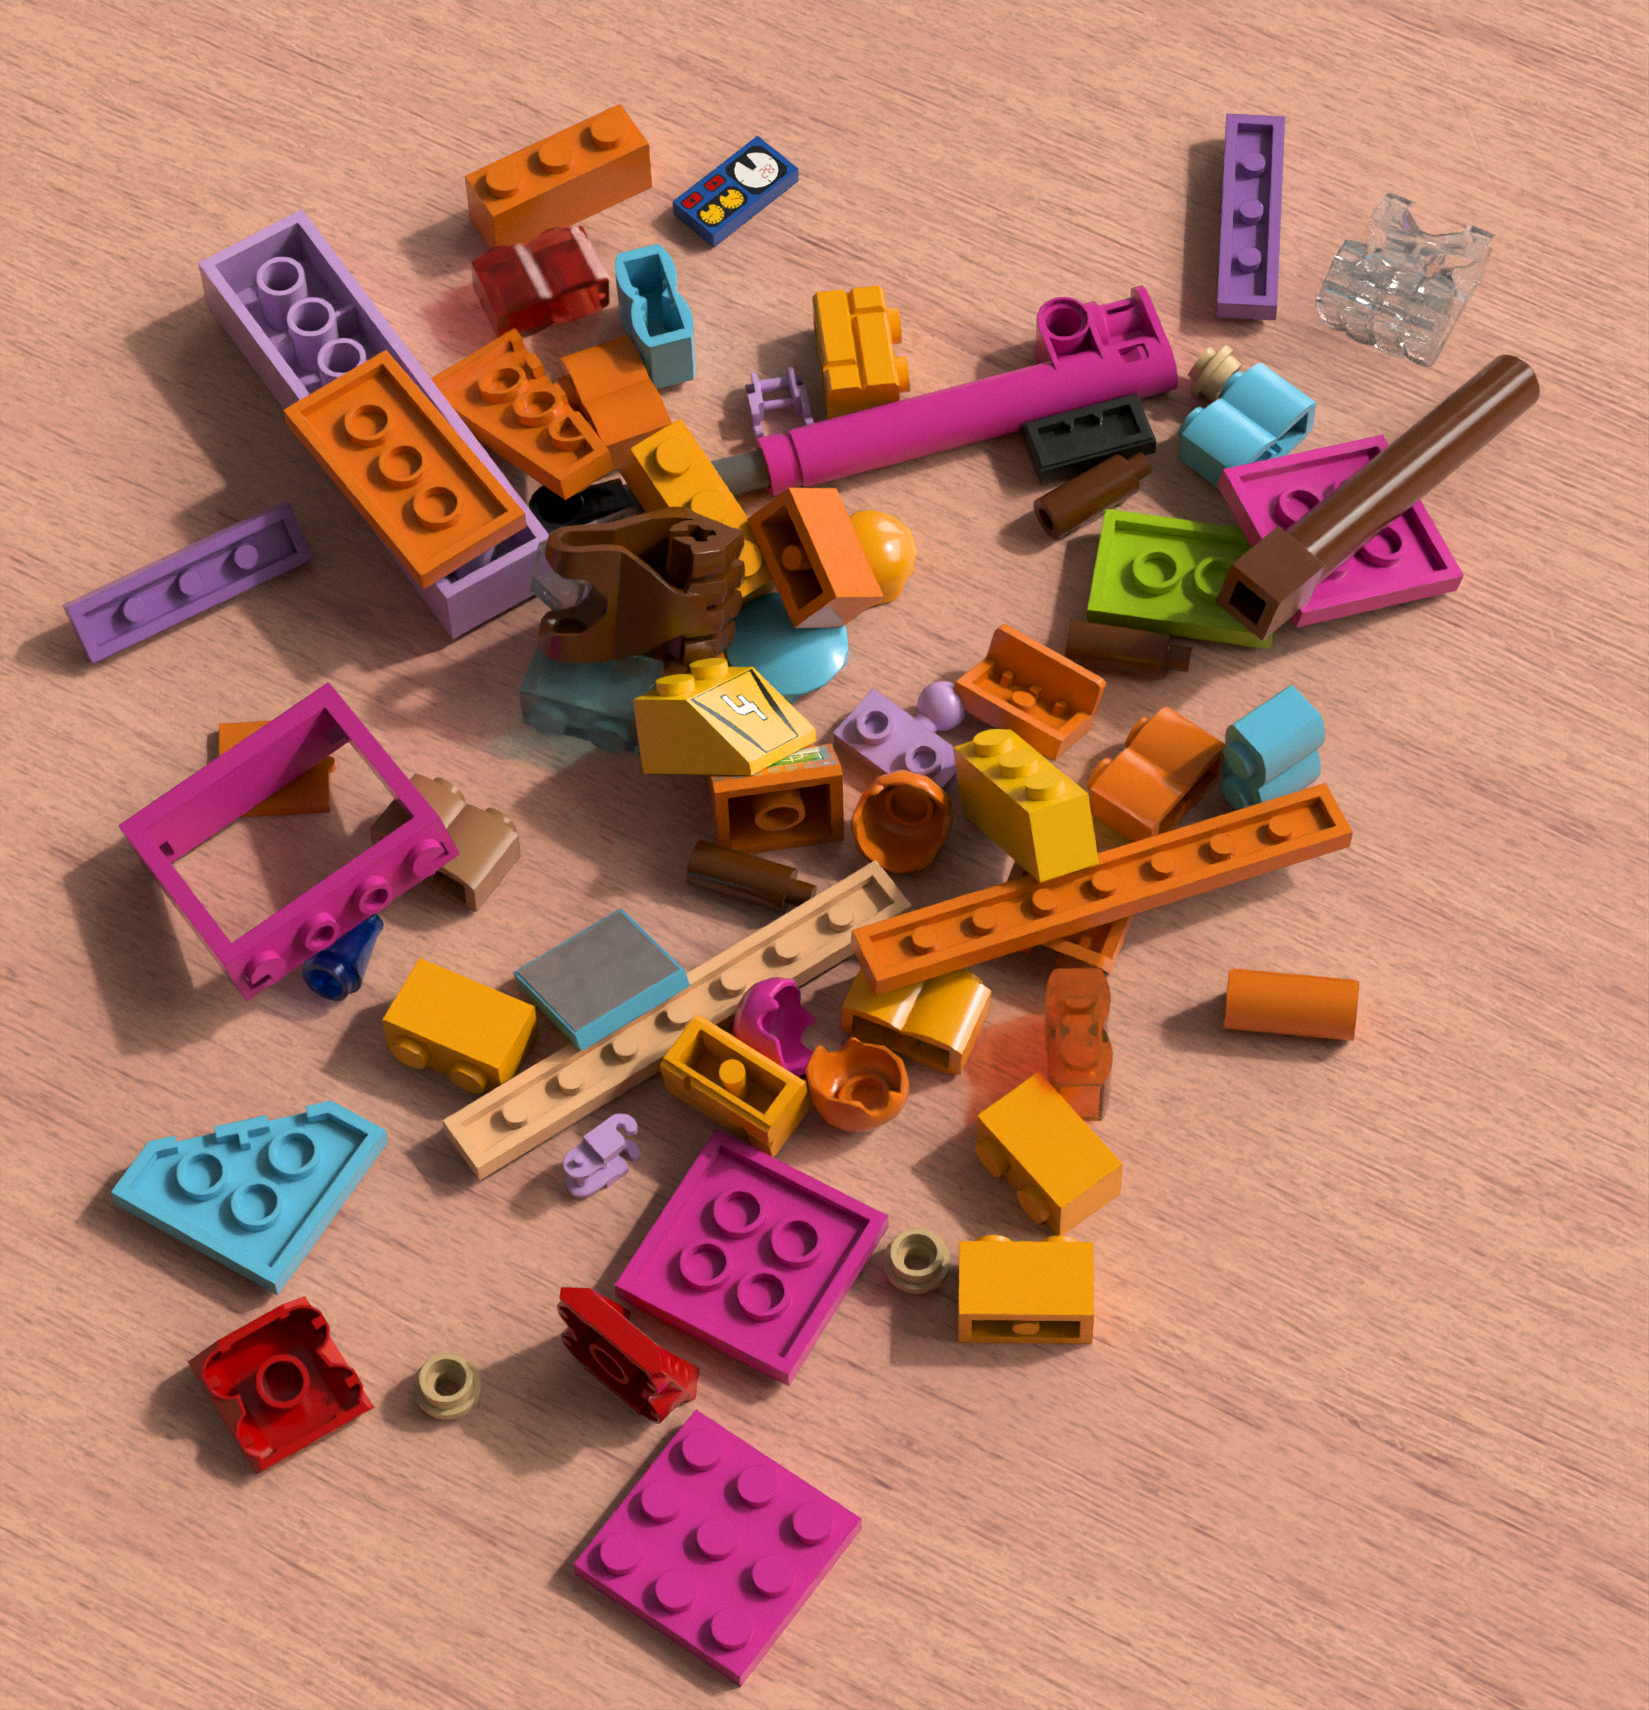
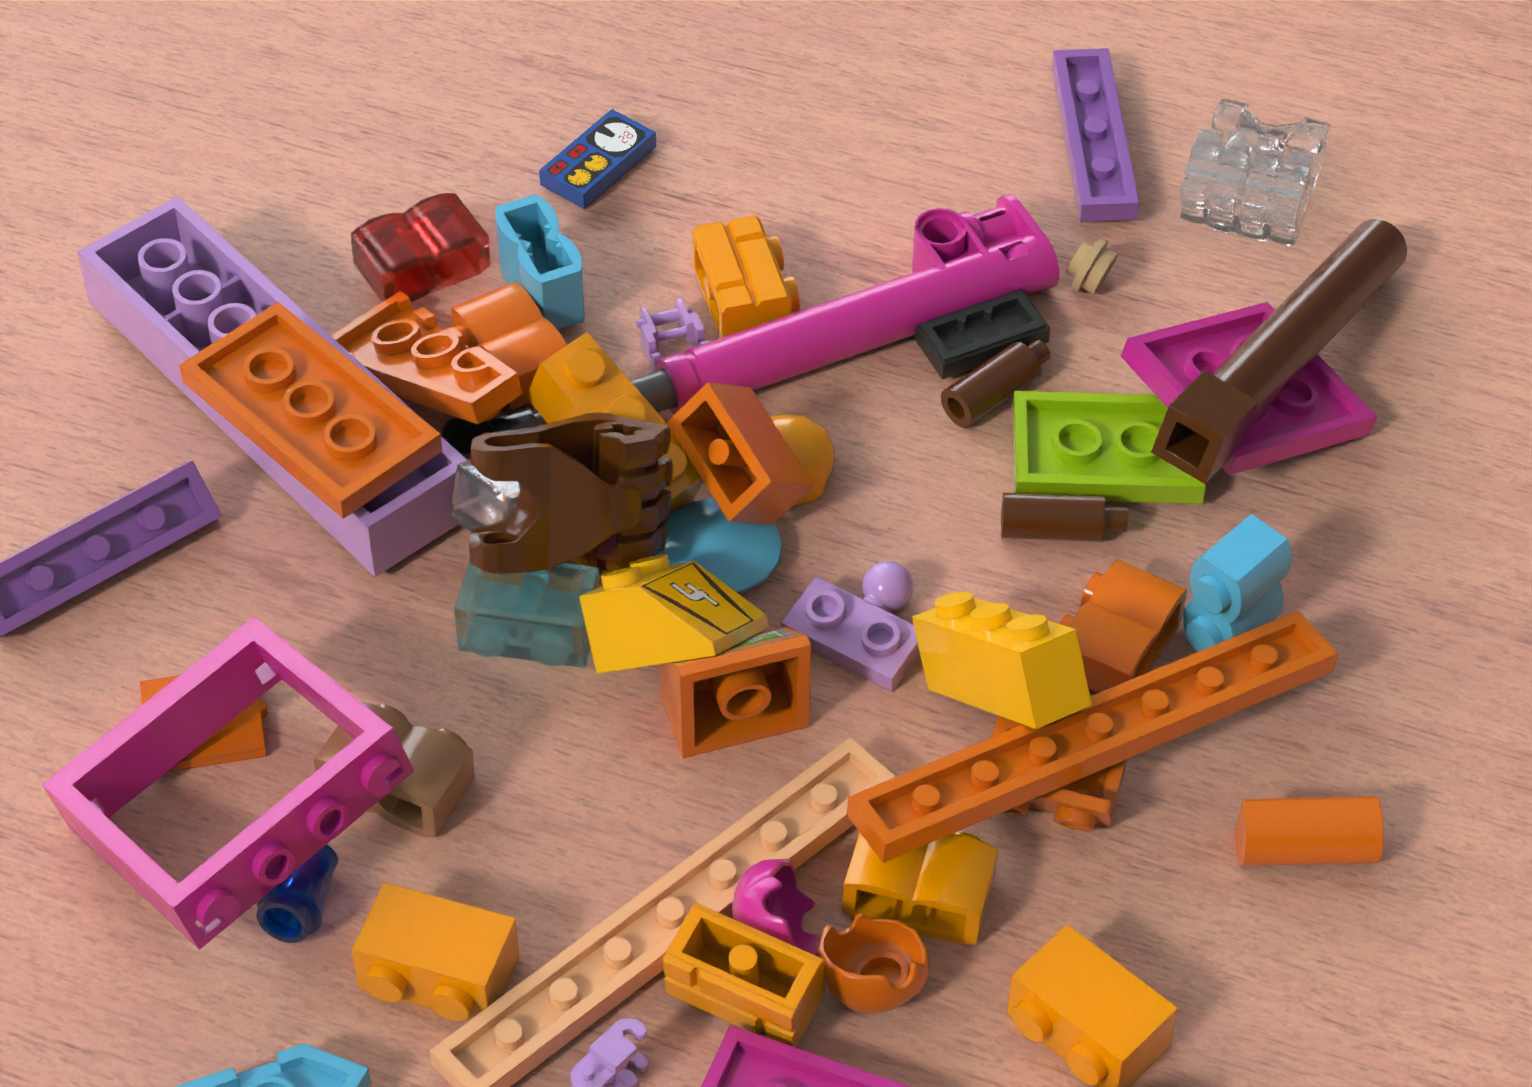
camera: 10 degrees left, 10 degrees down
(560, 179) = (427, 155): orange brick -> none
(601, 979) = (581, 886): flat silver tile -> none
(746, 877) = (717, 770): reddish brown cylinder -> none
(901, 821) = (871, 695): orange hair -> none
(1031, 692) = (976, 556): orange bracket -> none
(1079, 1039) = (1097, 887): clear orange brick -> none
(1250, 422) = (1132, 300): medium azure brick -> none

